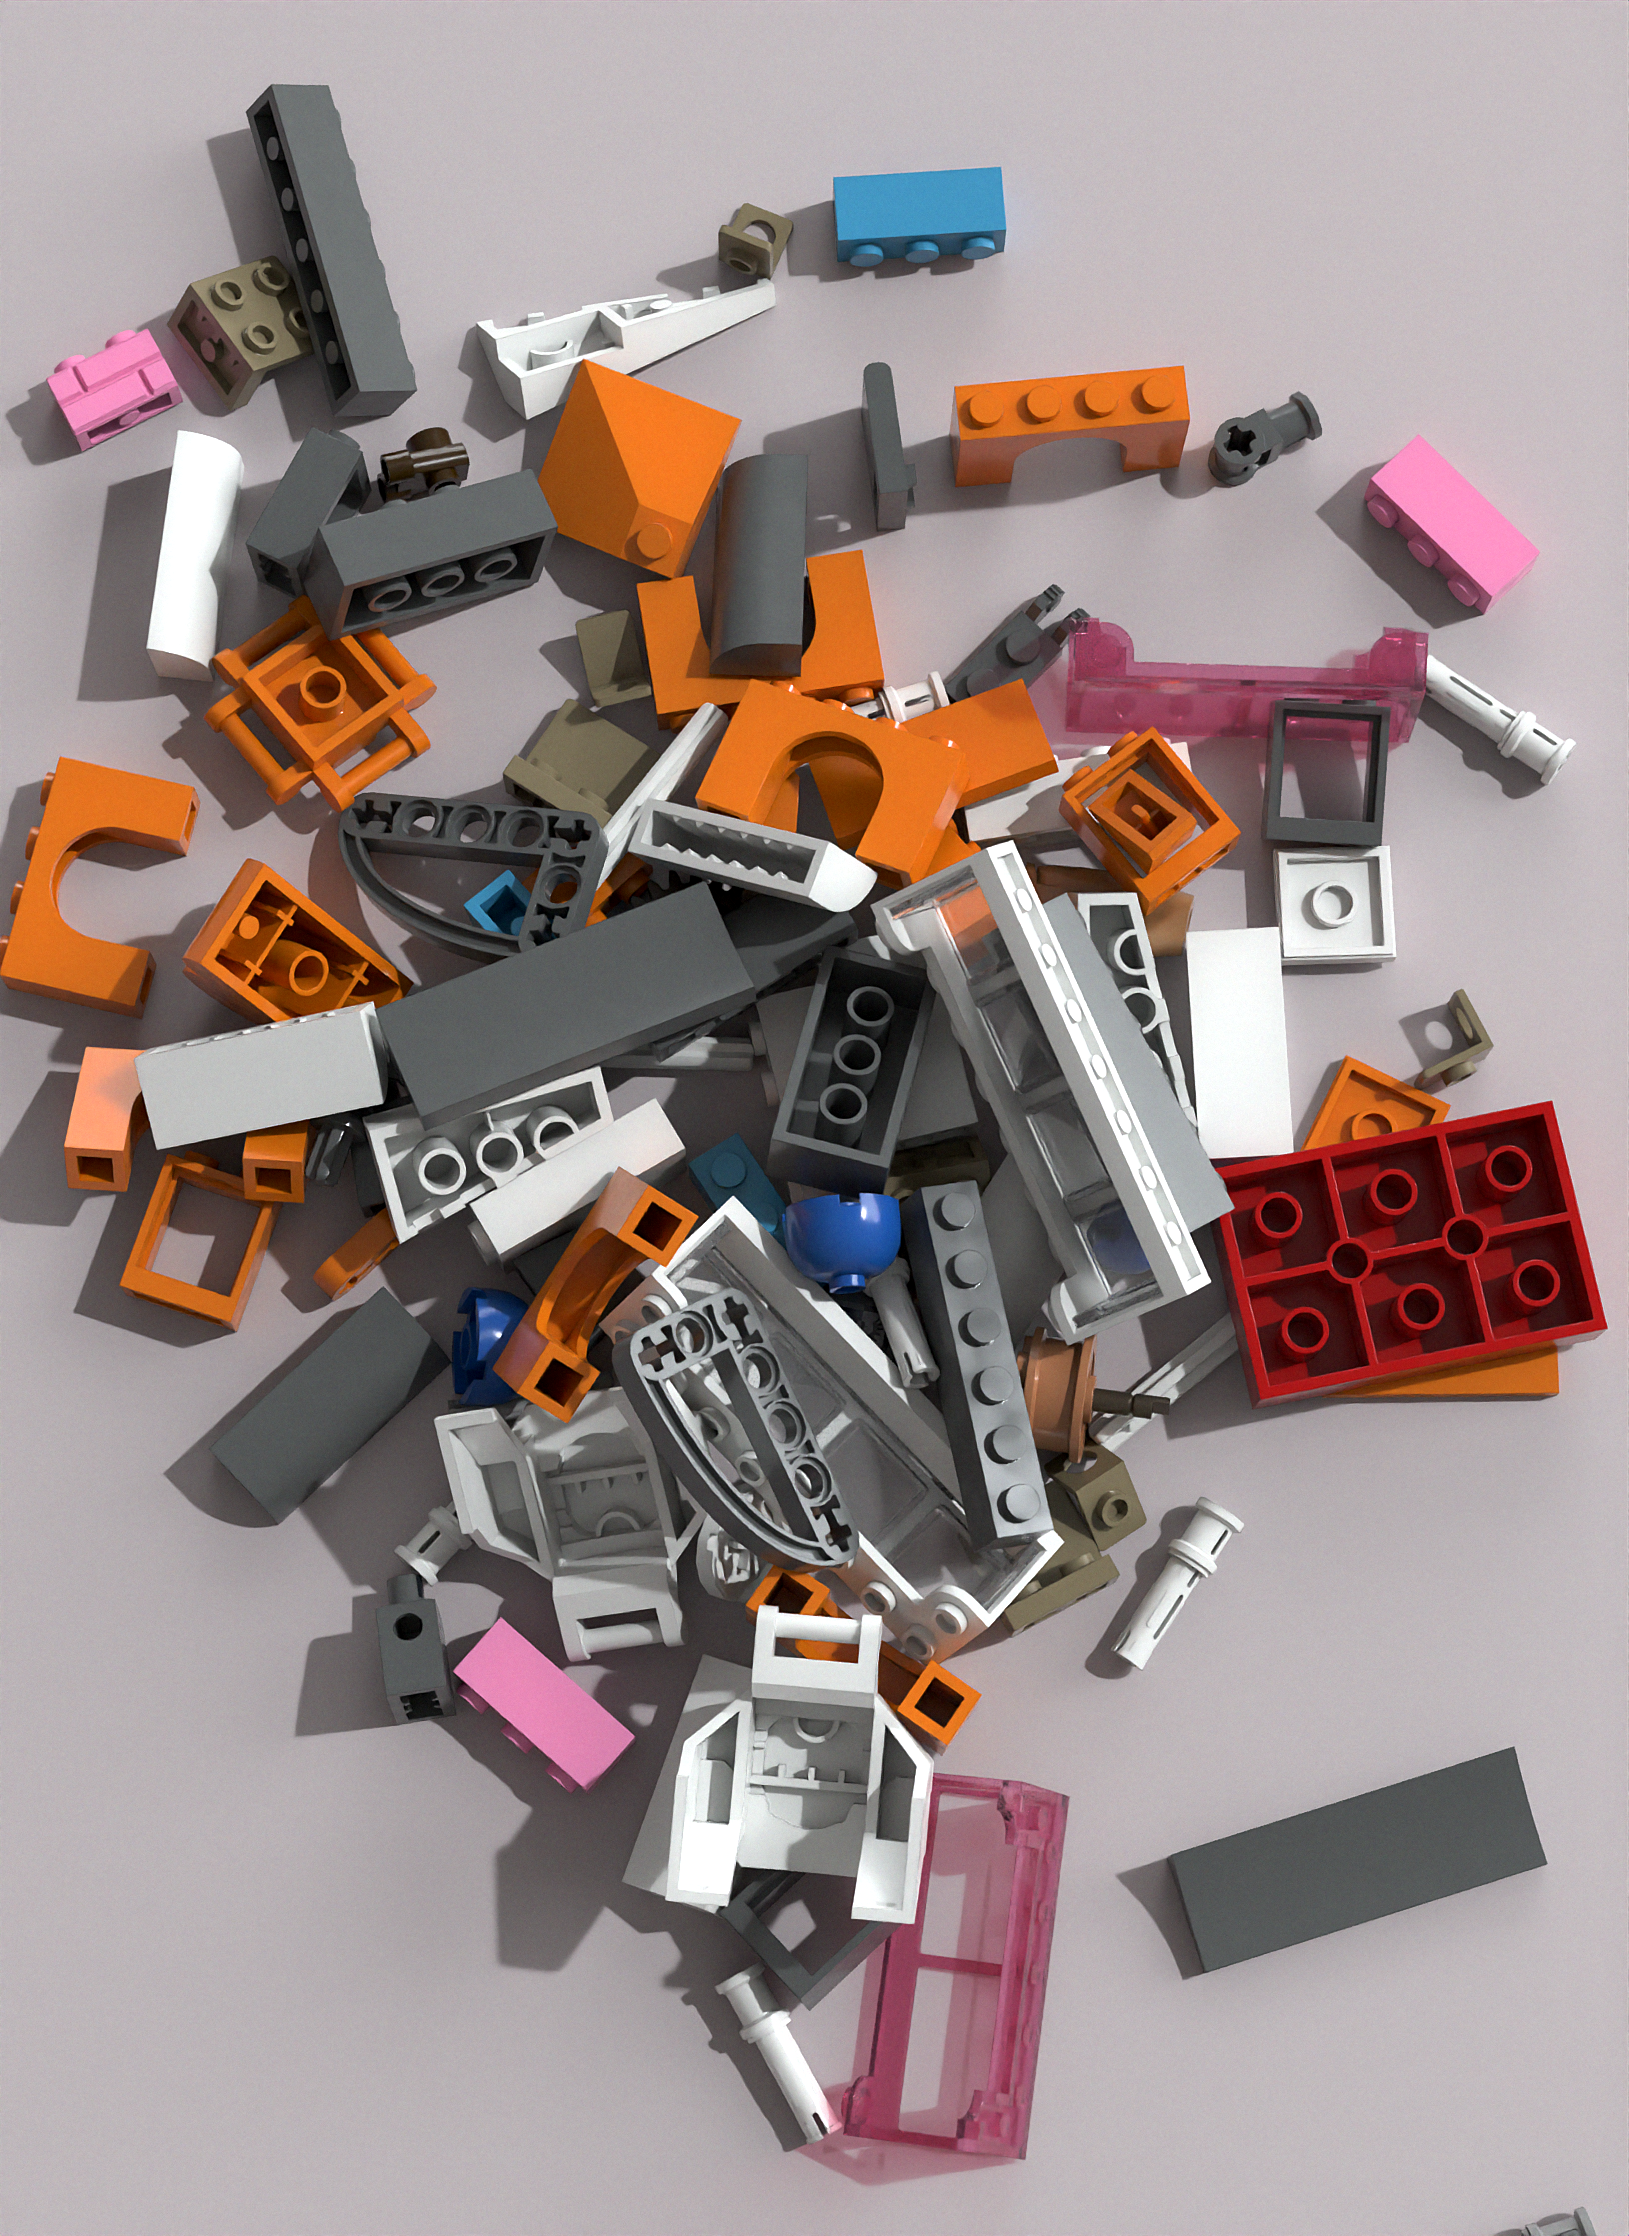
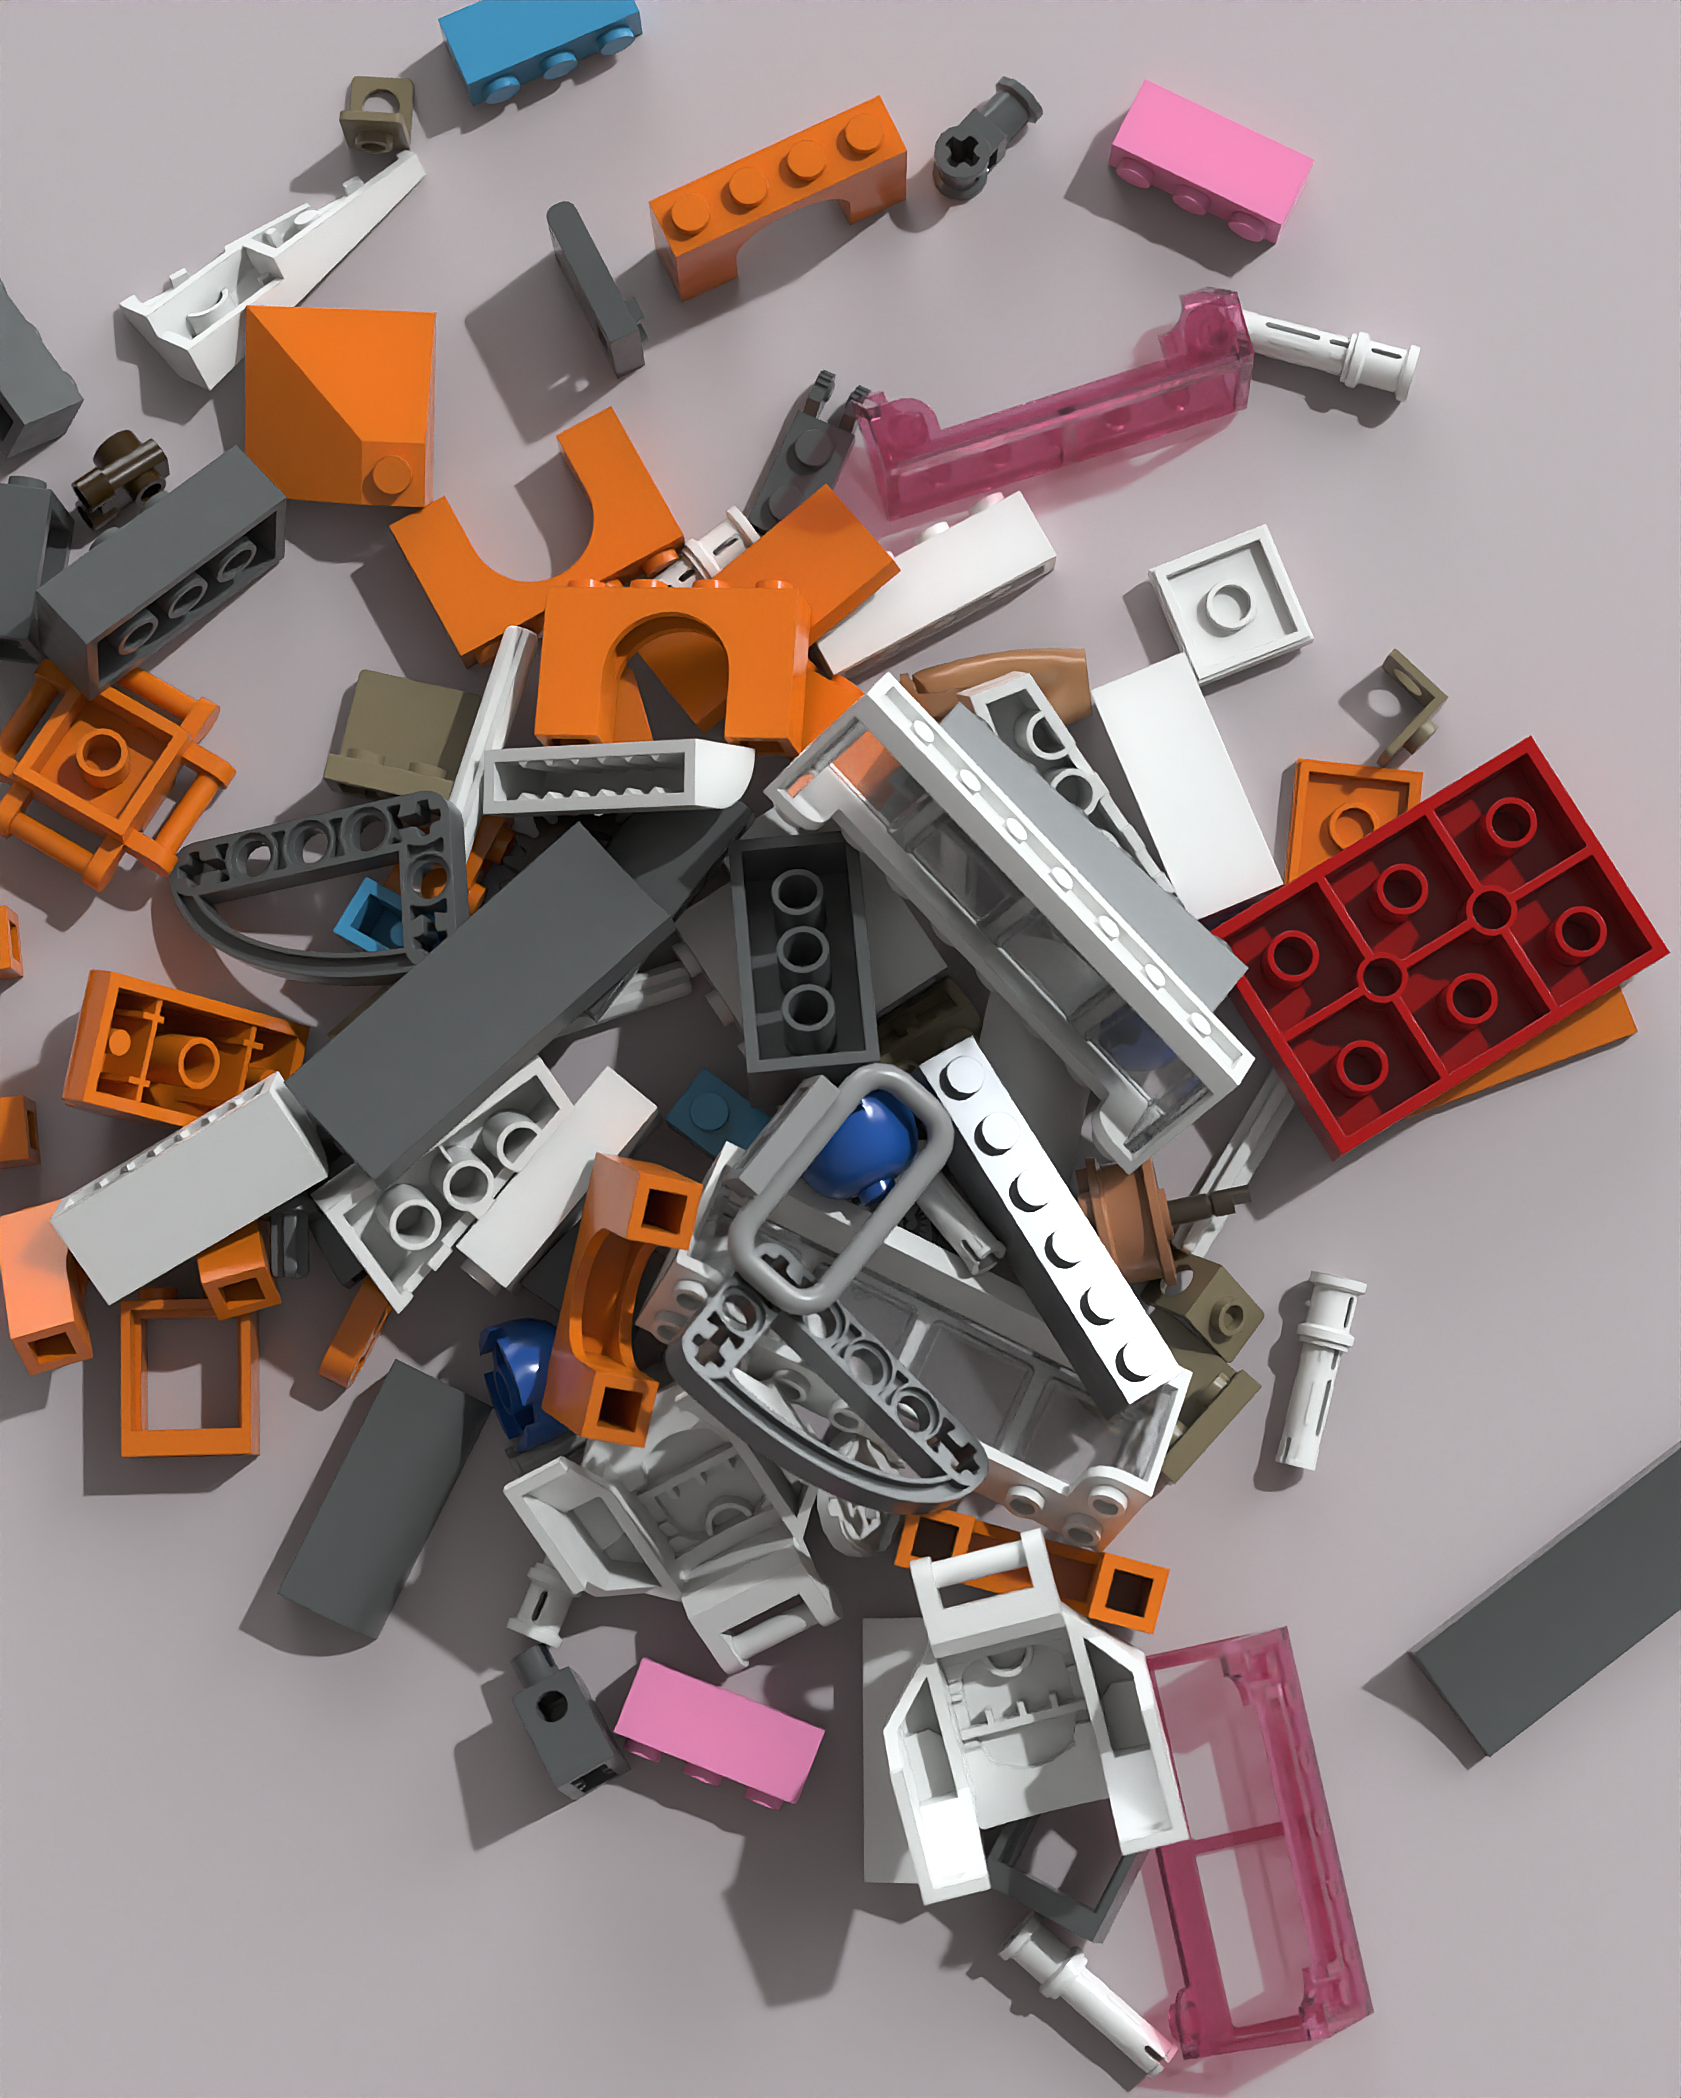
camera: 15 degrees left, 5 degrees up
(612, 658) = (392, 612): dark tan bracket -> none
(759, 567) = (511, 462): dark grey brick -> none
(783, 1214) = (791, 1145): none -> light grey bar
(1143, 820) = (1008, 593): orange slope -> none
(1178, 871) = (964, 529): orange window -> none
(1324, 830) = (1234, 520): dark grey window -> none

